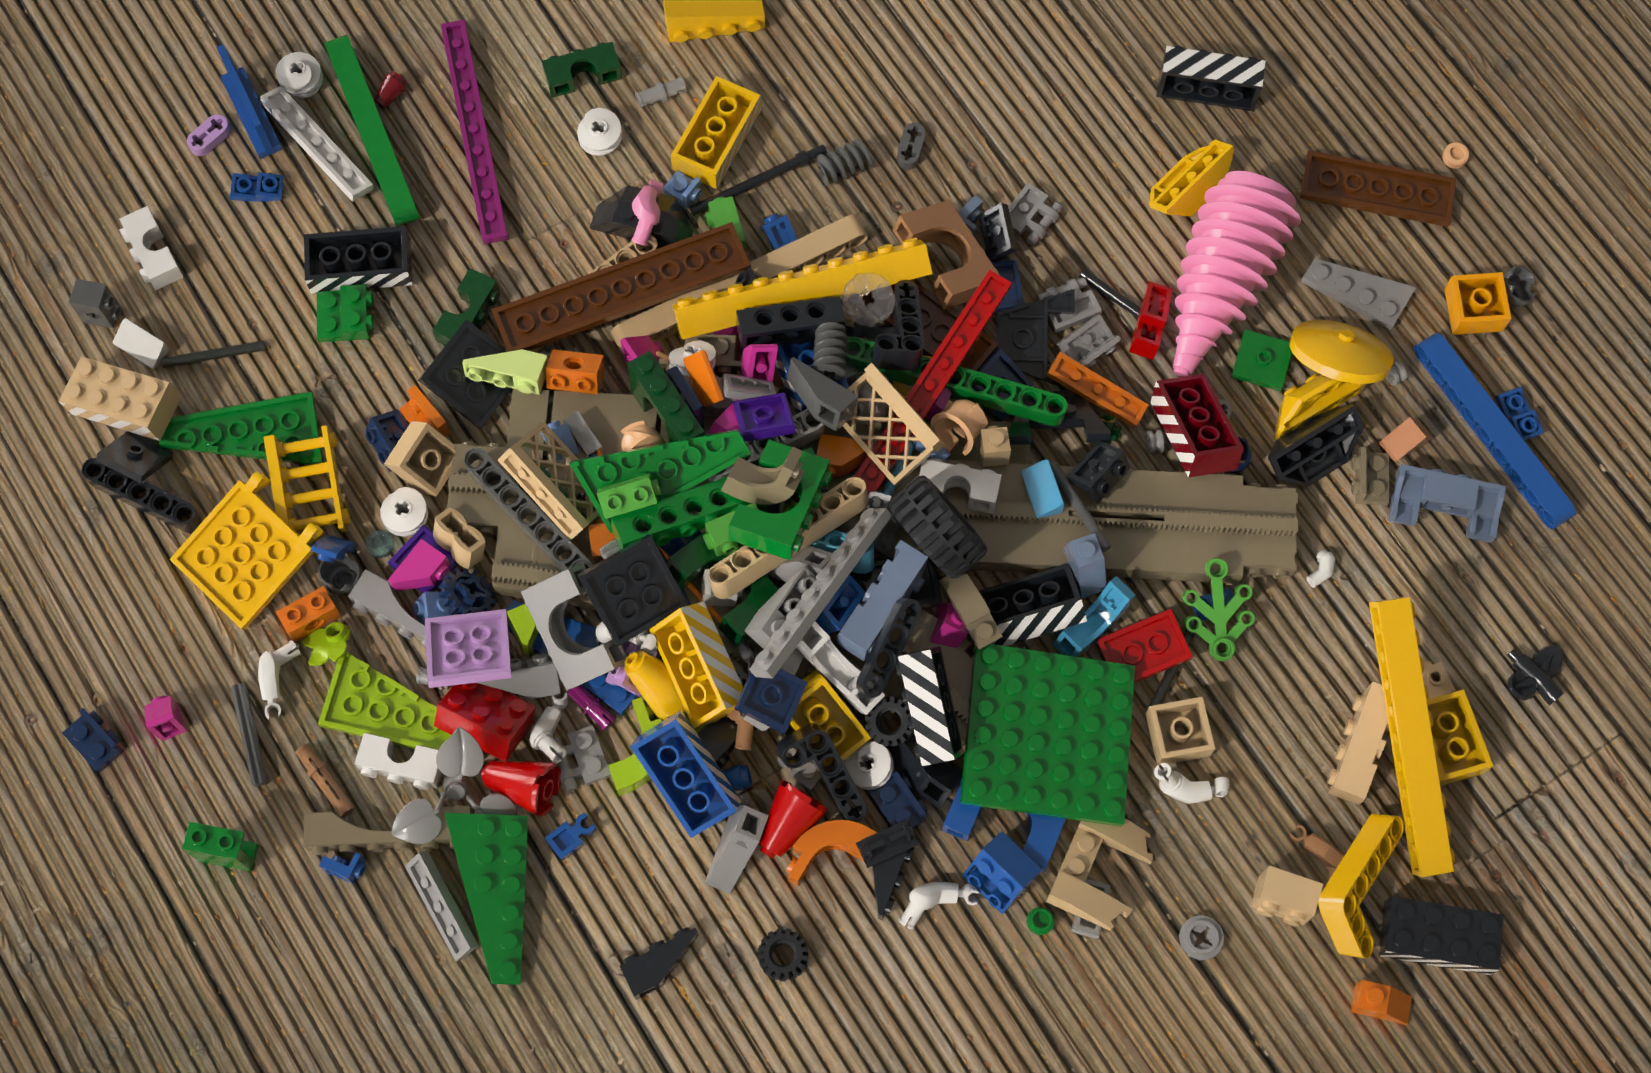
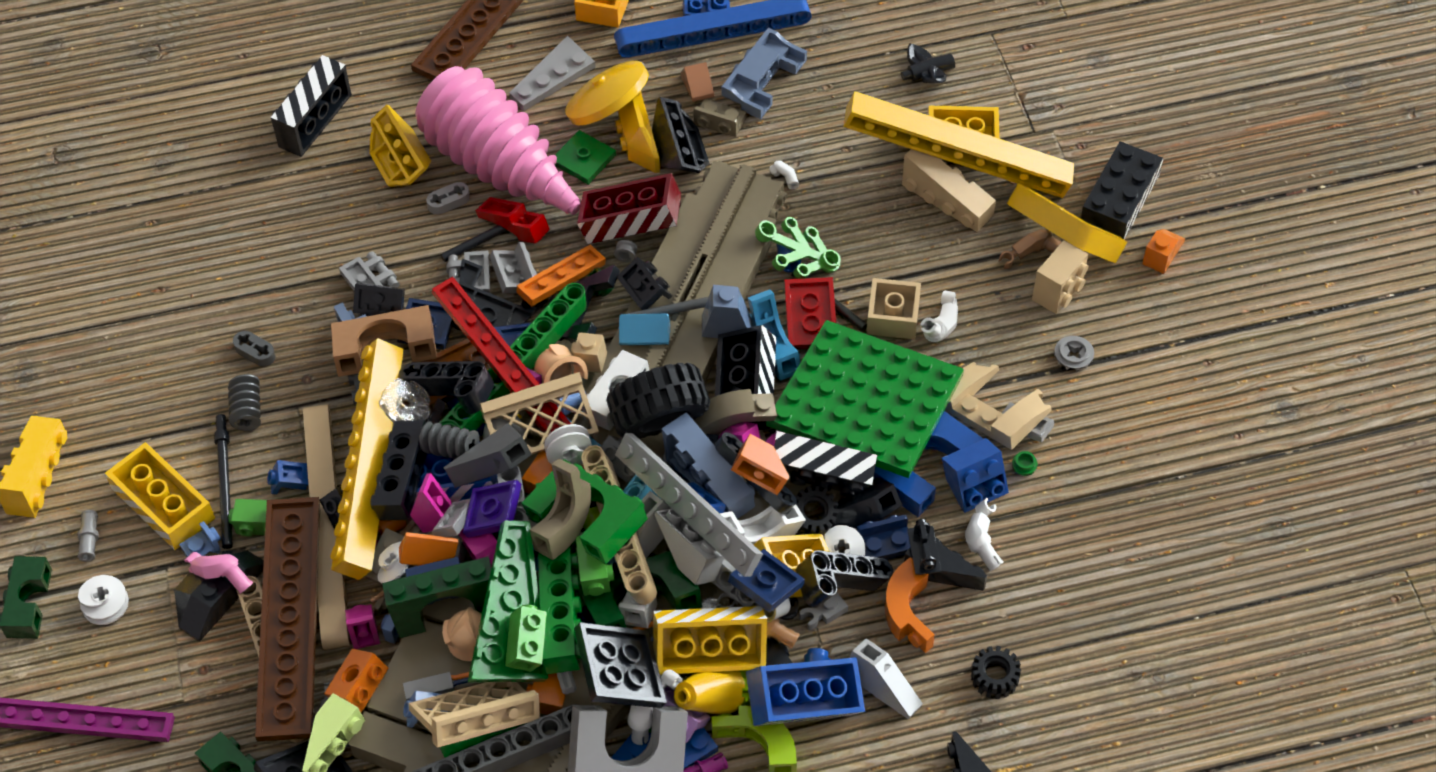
camera: 70 degrees left, 15 degrees down
(788, 819) = (870, 619): red cone -> none
(859, 459) = (567, 443): none -> white piece
(887, 645) = (760, 465): none -> orange slope
(1156, 250) = (448, 198): none -> light grey beam

